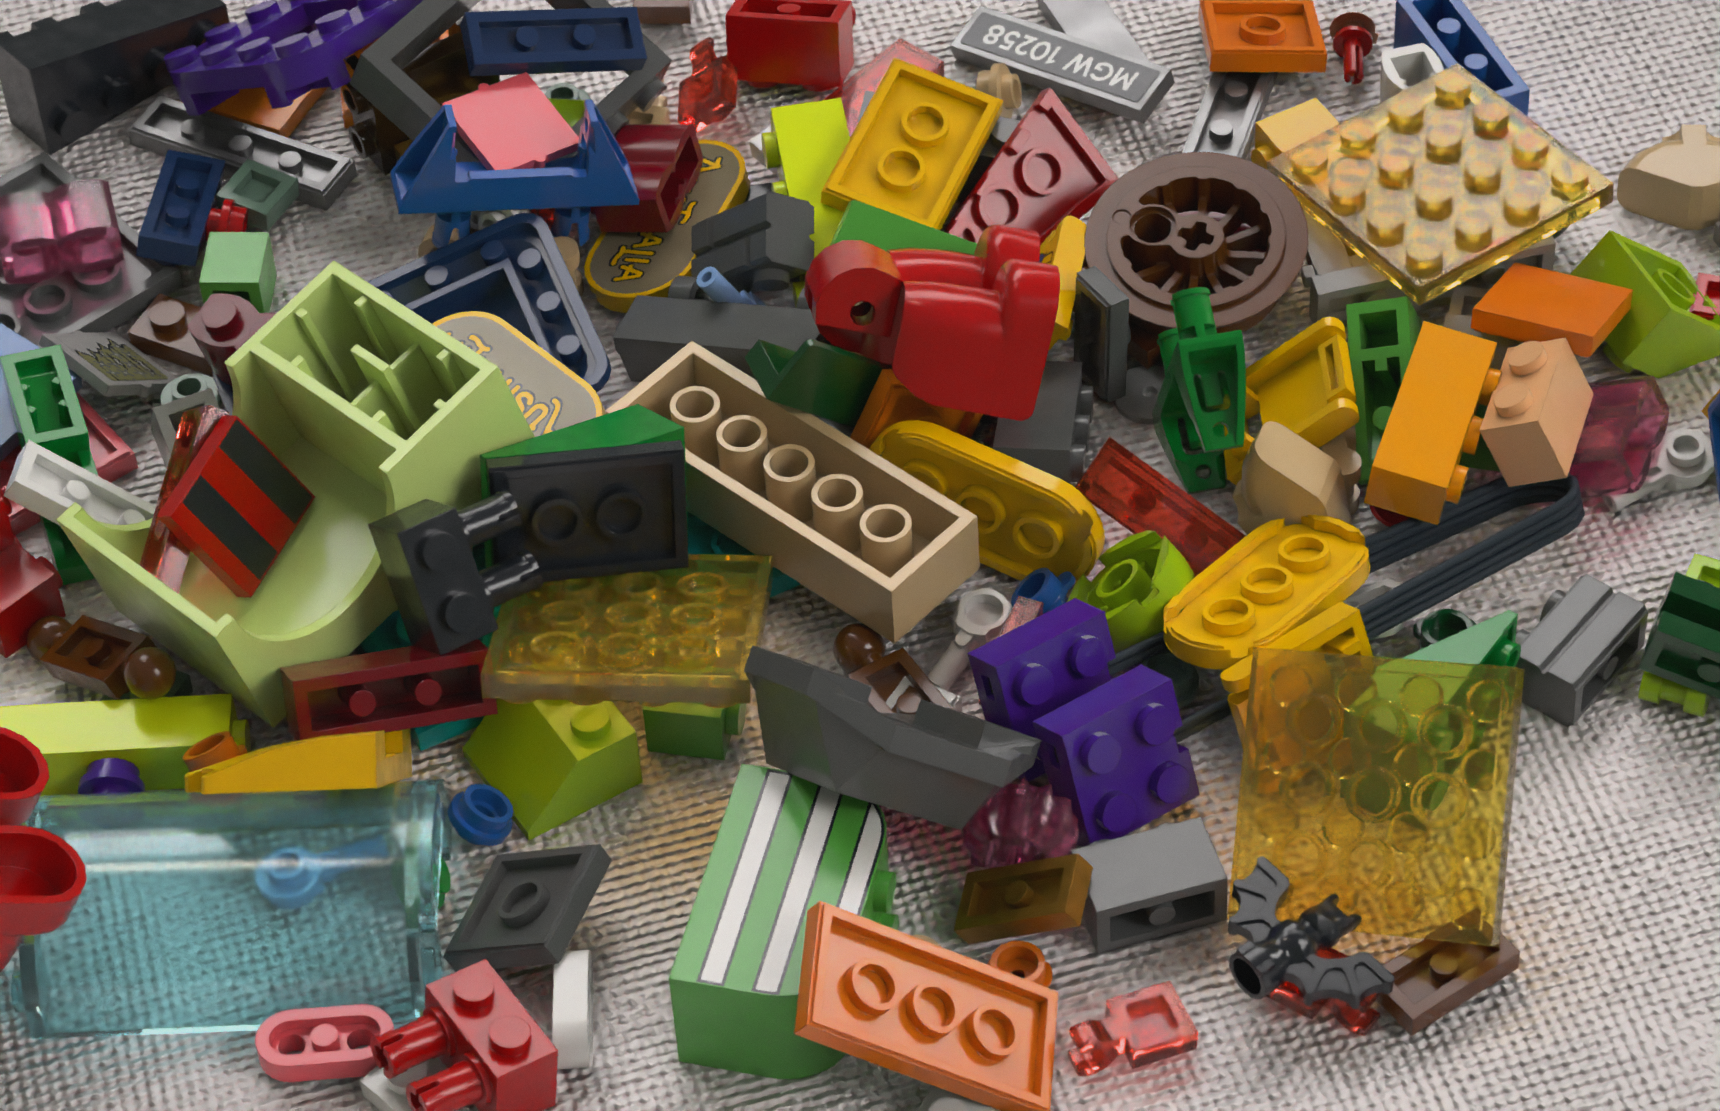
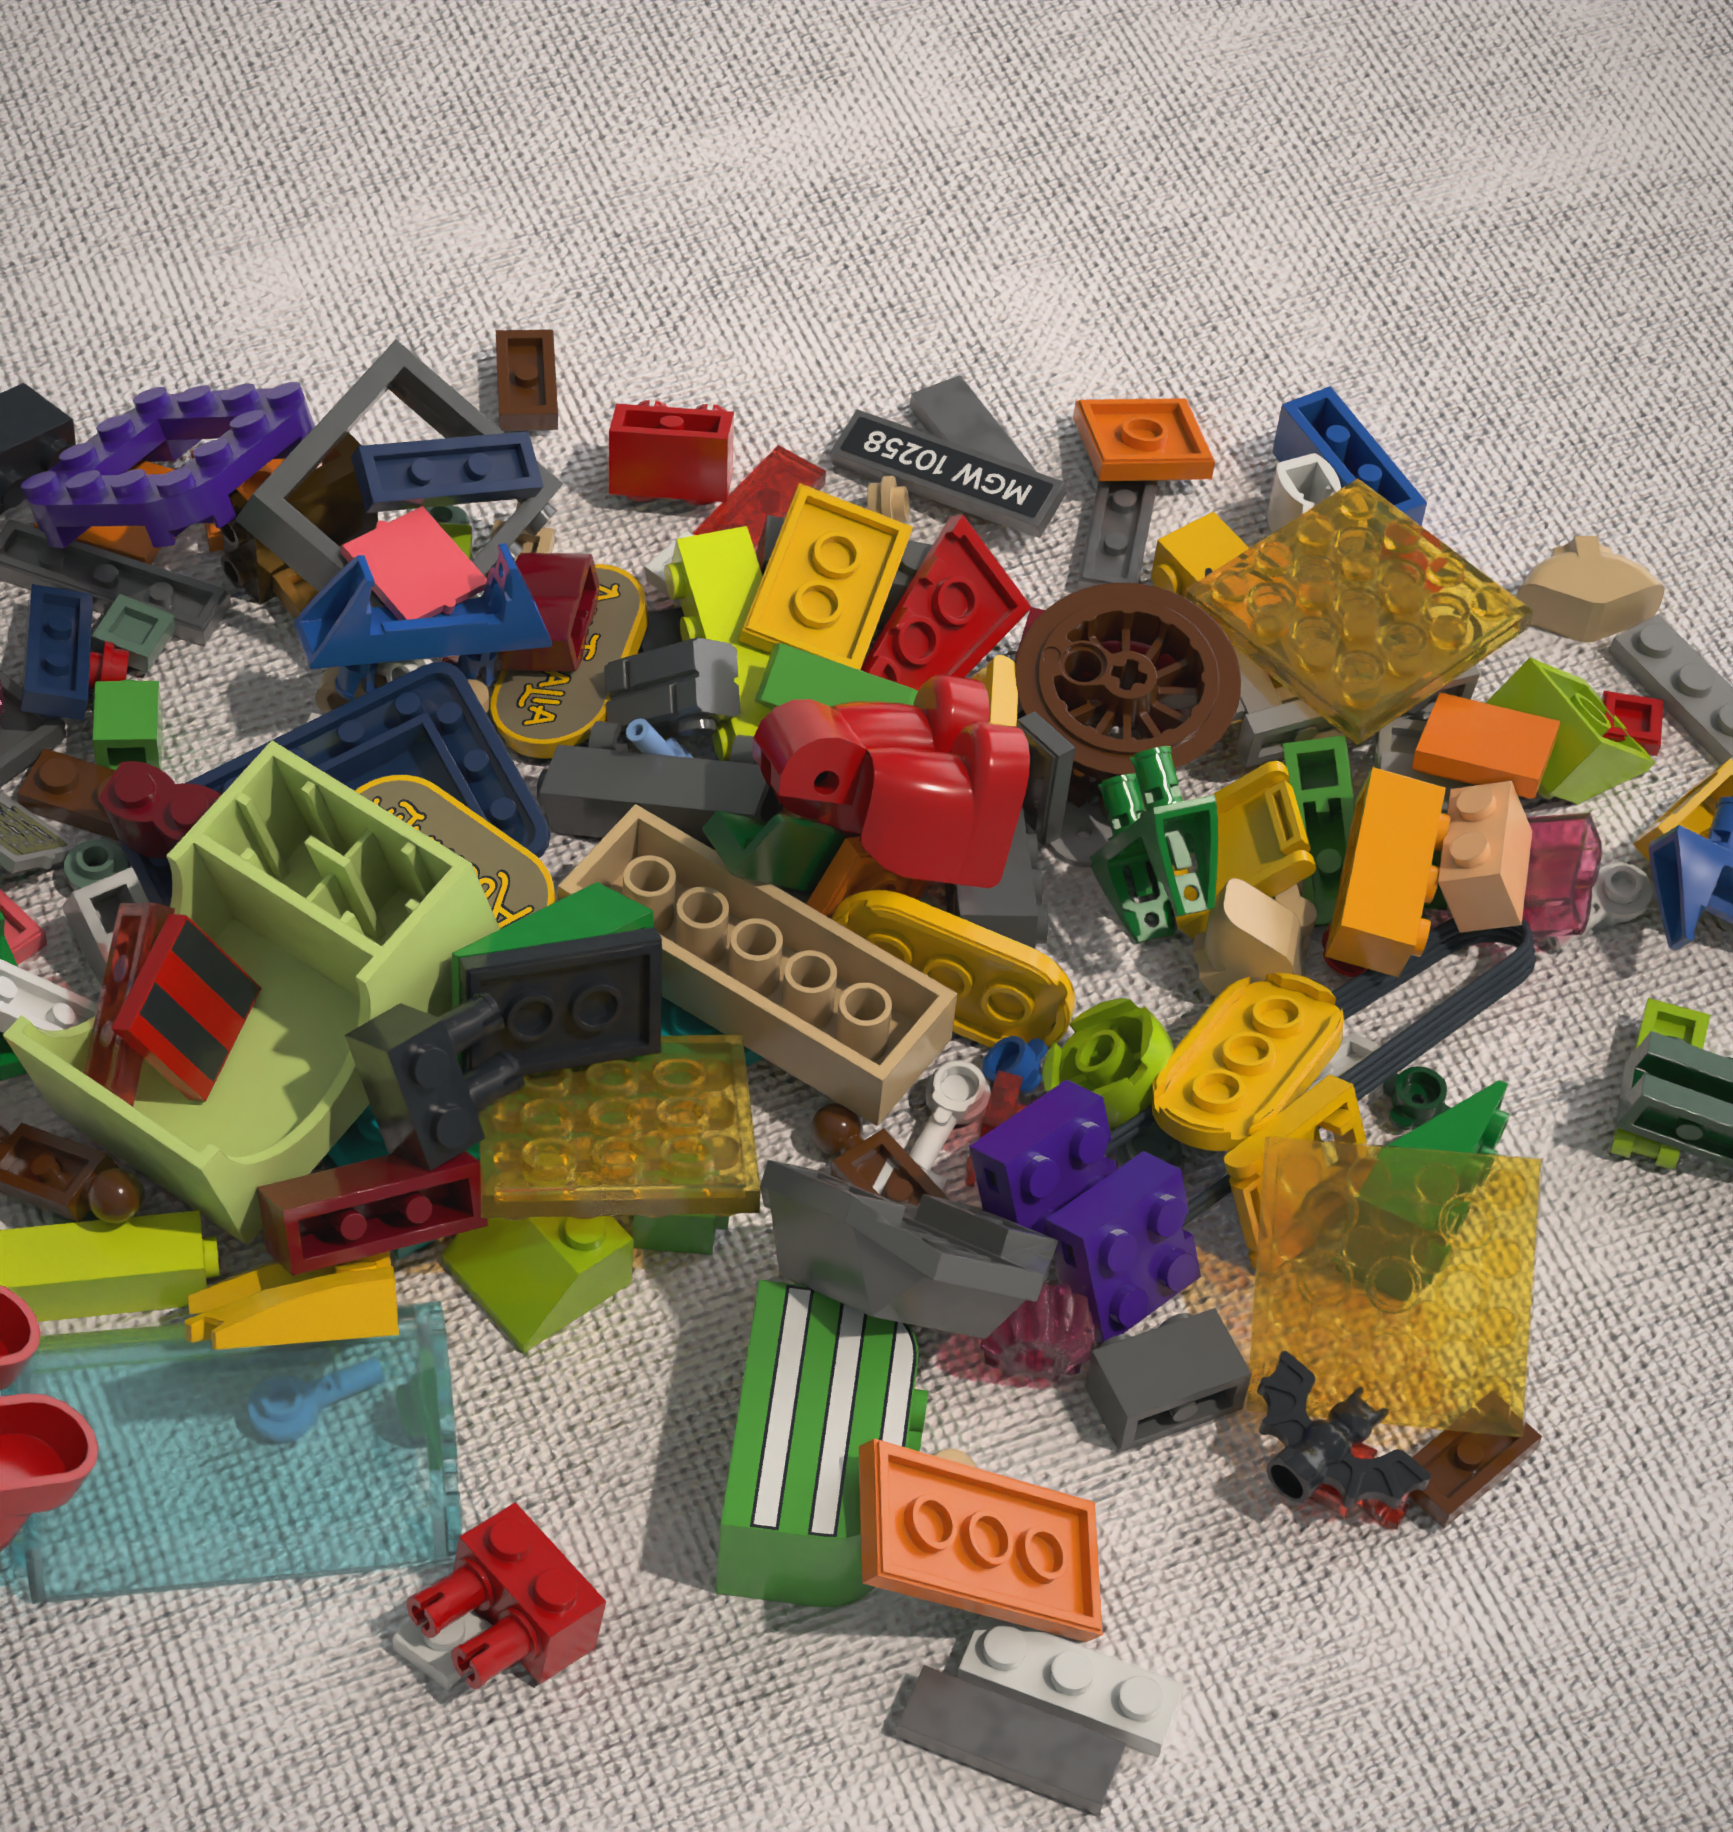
camera: 15 degrees left, 5 degrees up
(111, 776) = (80, 1312): dark purple plate -> none
(212, 751) = (196, 1289): orange plate -> none
(326, 1039) = (350, 1593): coral plate -> none
(481, 815) = (477, 1331): blue plate -> none
(528, 907) = (543, 1437): dark grey tile -> none
(573, 1010) = (604, 1543): white beam -> none
(710, 90) = (592, 506): clear red plate -> none
(1022, 960) = (1054, 1467): orange plate -> none
(1023, 899) = (1048, 1404): pearl gold plate -> none
(1140, 1024) = (1182, 1533): clear red plate -> none
(1149, 501) = (1122, 968): clear red tile -> none
(1353, 40) = (1232, 443): red piece -> none
(1579, 647) = (1553, 1098): dark grey brick -> none

